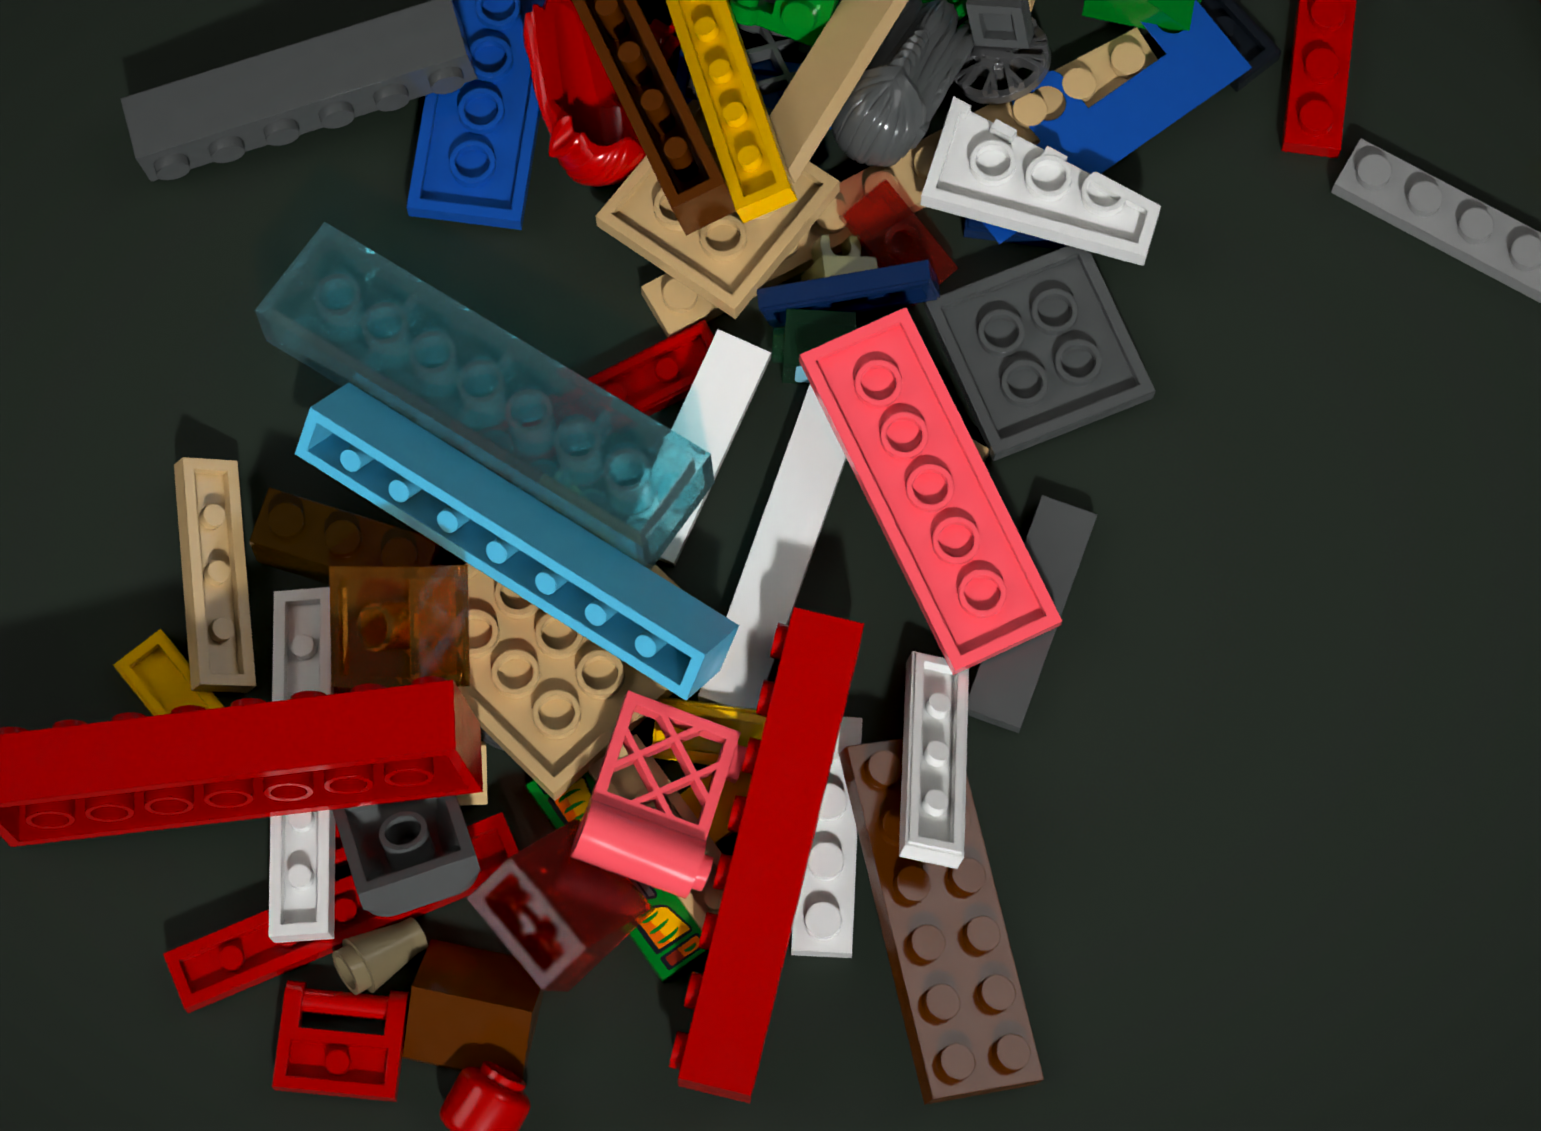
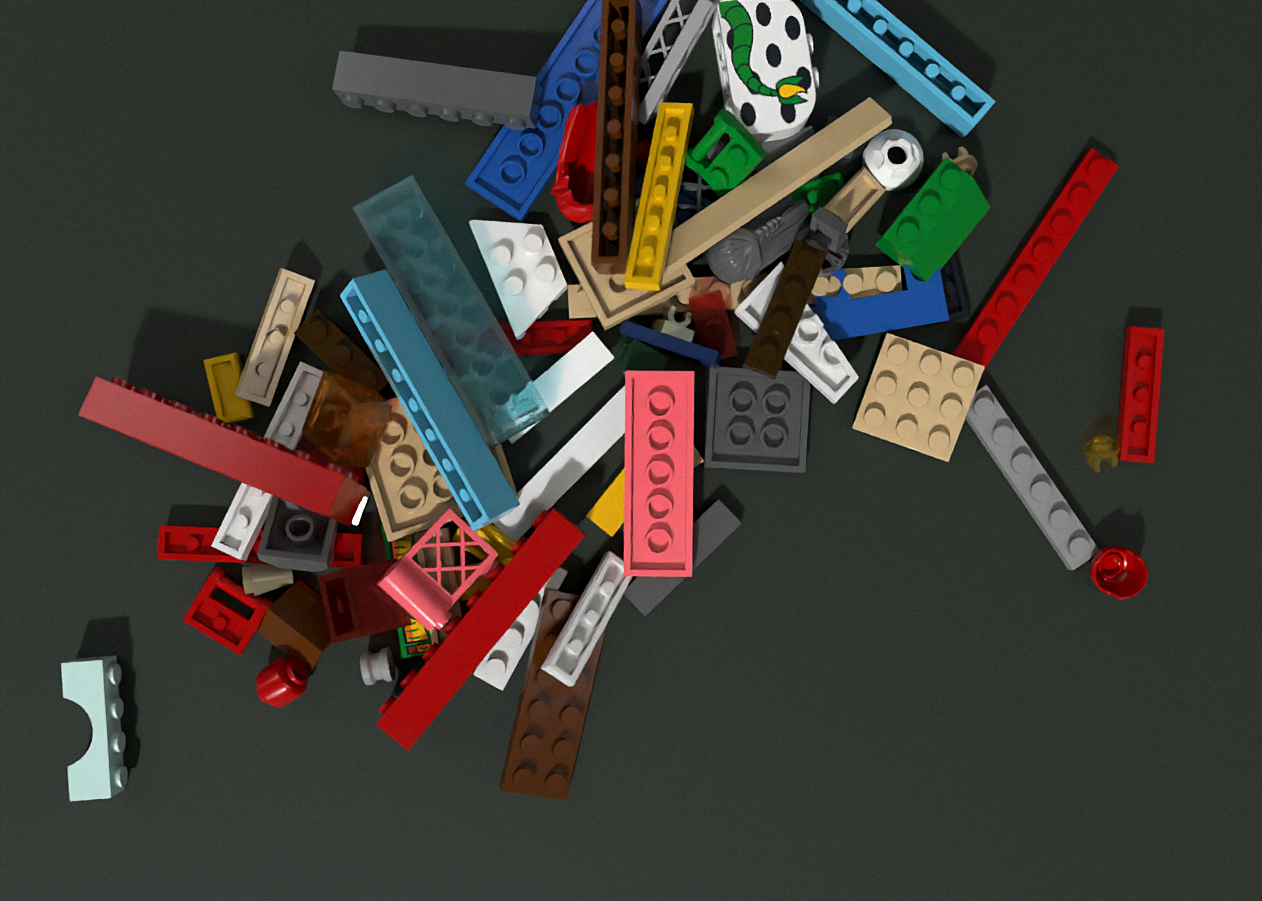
camera: 20 degrees right, 15 degrees up
(553, 294) = (520, 268): none -> white wing
(630, 1009) = (377, 666): none -> light grey wheel
(880, 590) = (609, 509): none -> yellow tile
(997, 159) = (785, 309): none -> dark brown plate
(1266, 202) = (917, 397): none -> tan plate

